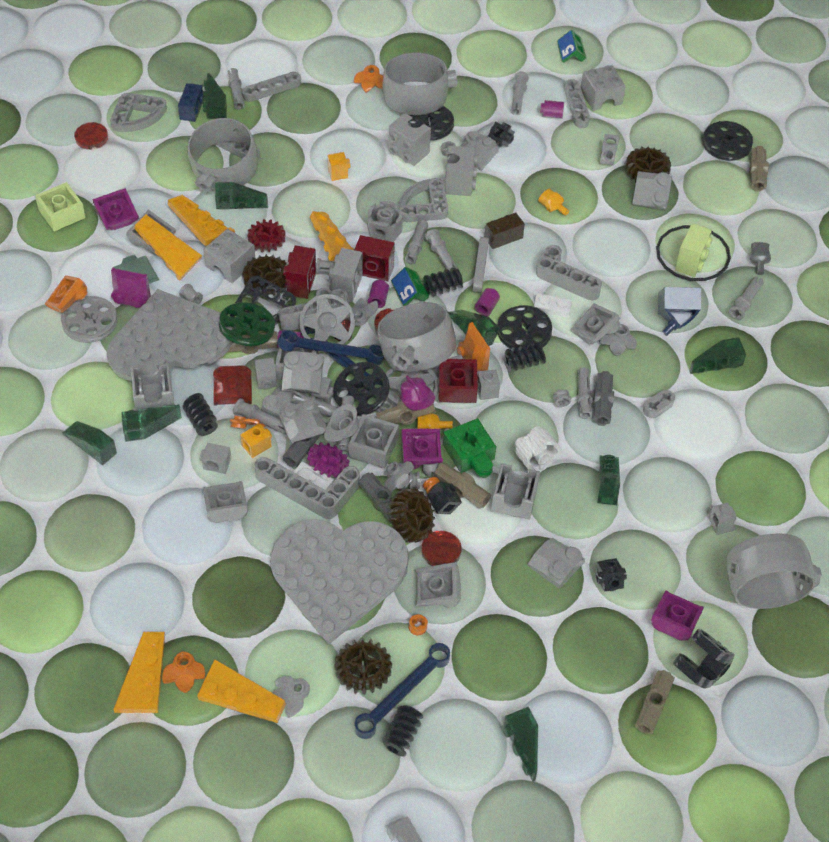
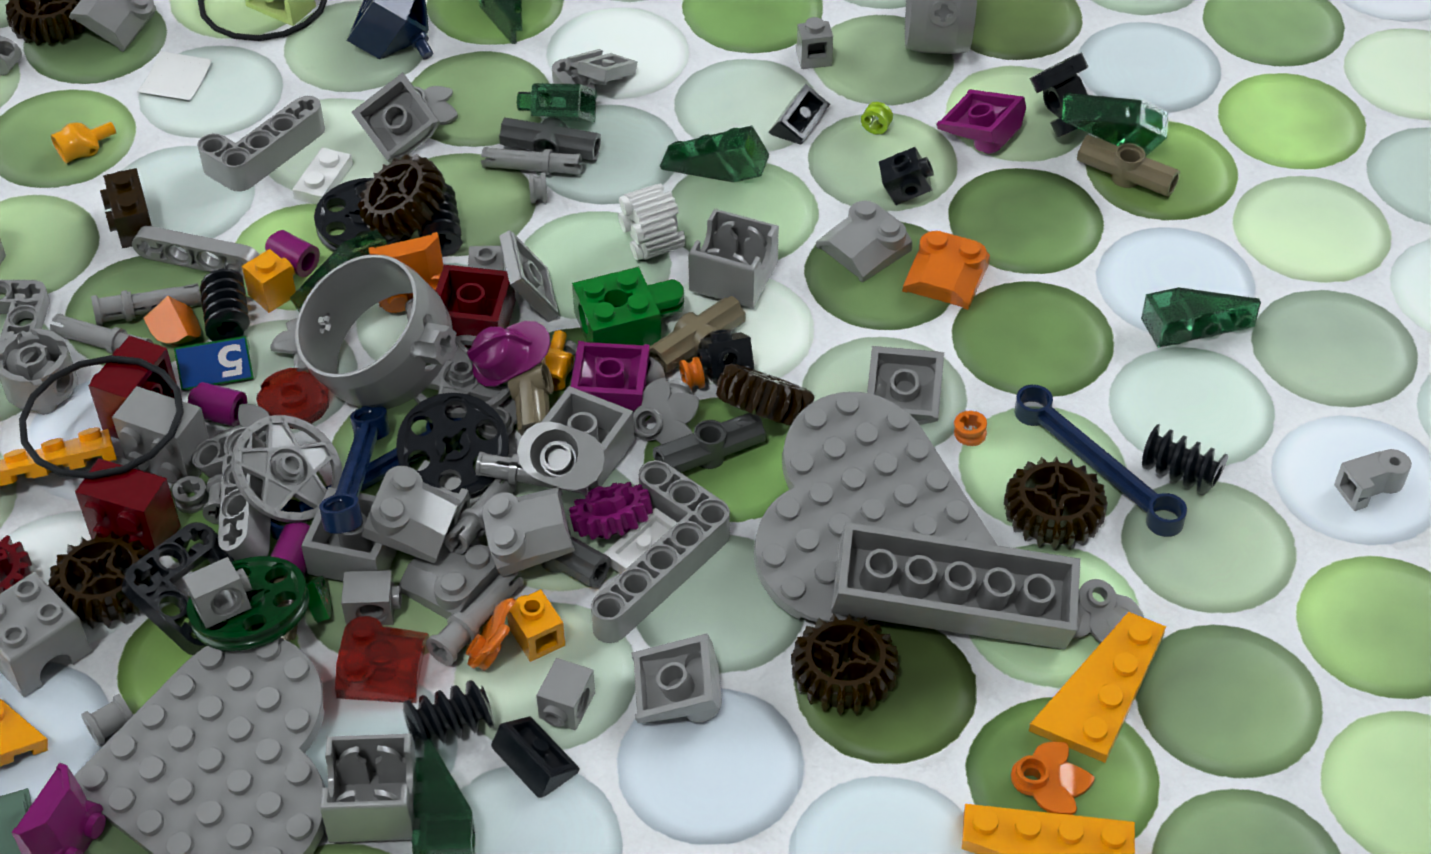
camera: 80 degrees left, 5 degrees down
(185, 454) = (533, 755): none -> black slope
(241, 306) = (218, 591): none -> light grey brick
(248, 578) = (848, 681): none -> dark brown gear
(266, 352) = (320, 600): none -> green tile
(286, 612) = (956, 585): none -> light grey brick
(340, 270) = (111, 471): none -> black piece
(429, 265) = (173, 322): none -> orange brick
(441, 548) = (823, 374): clear red tile -> none
(464, 295) = (269, 280): none -> light orange brick
(483, 399) = (529, 276): none -> light grey tile
(523, 333) = (402, 197): none -> dark brown gear
(541, 606) = (947, 268): none -> orange slope
(616, 230) = (175, 75): none -> white sticker
(627, 396) = (559, 101): none -> clear green torso
(660, 520) = (800, 116): none -> black slope
(665, 559) = (873, 125): none -> lime bush
(669, 411) = (601, 67): none -> light grey plate
(683, 684) = (1117, 119): none -> clear green slope

